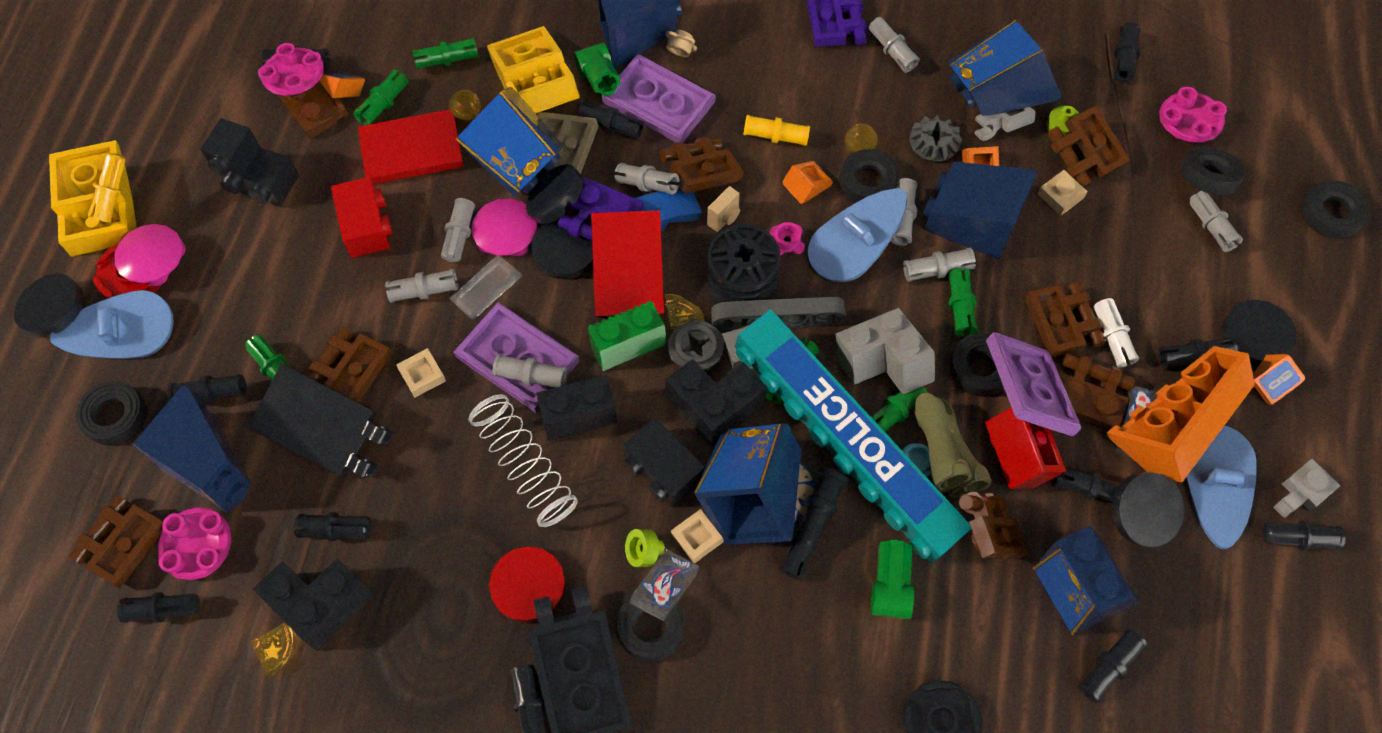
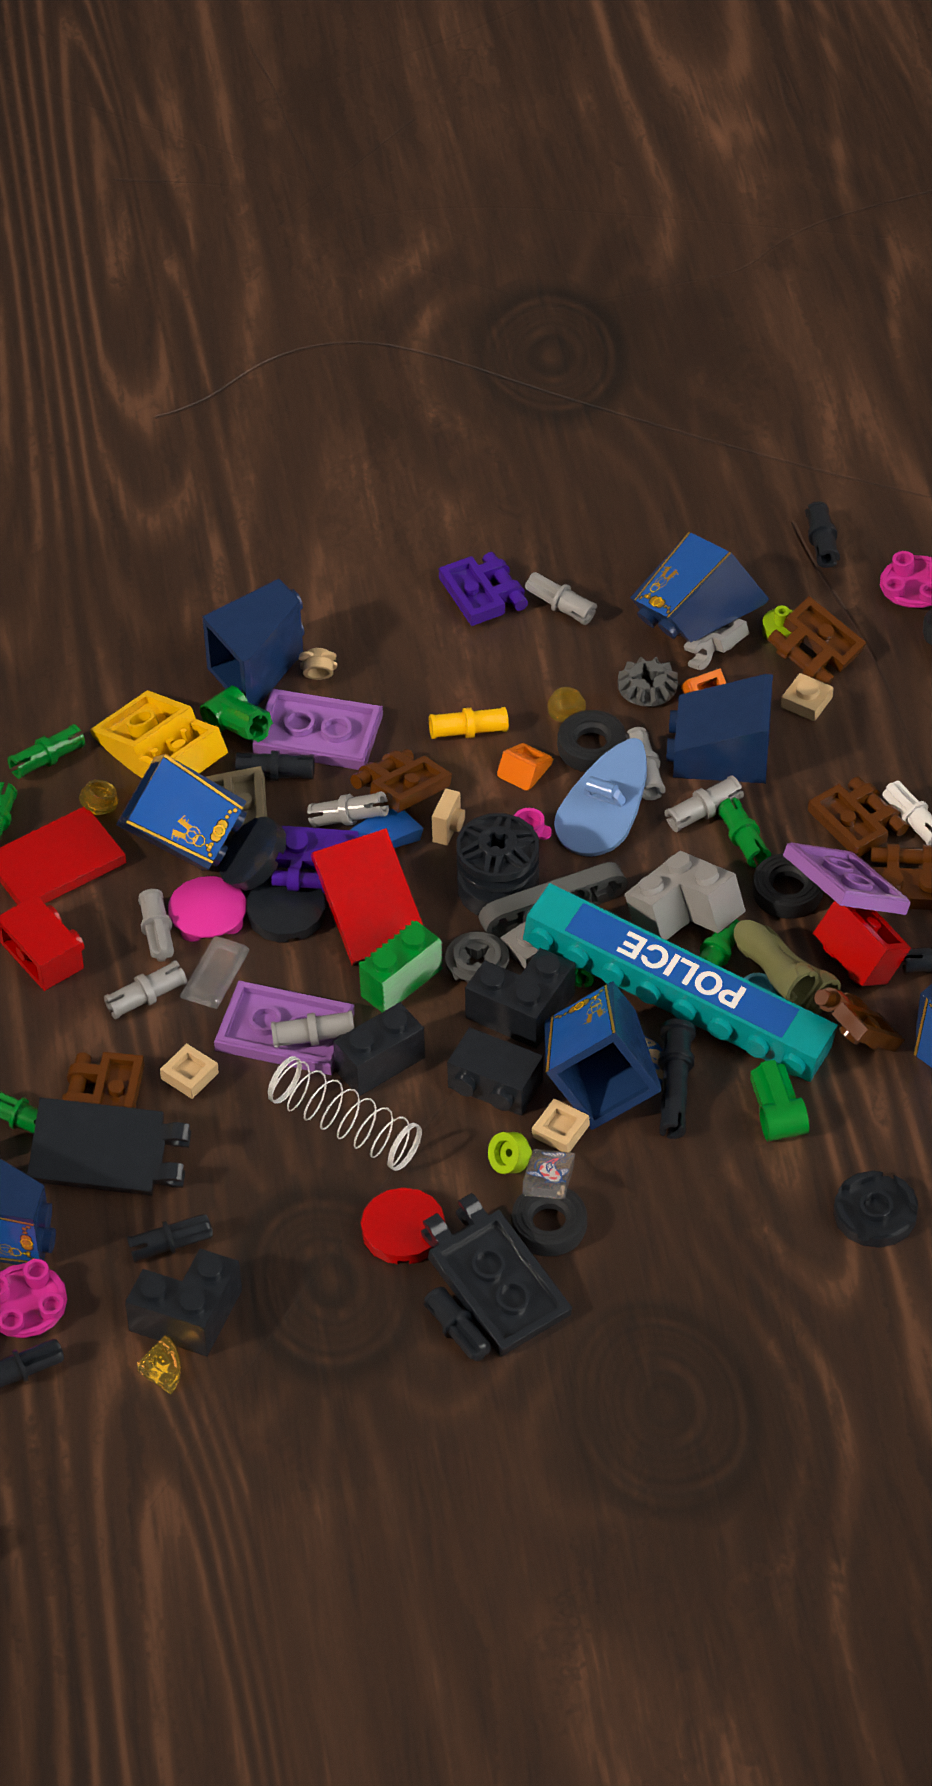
camera: 20 degrees left, 15 degrees down
(681, 311) = (446, 929): clear yellow tile -> none

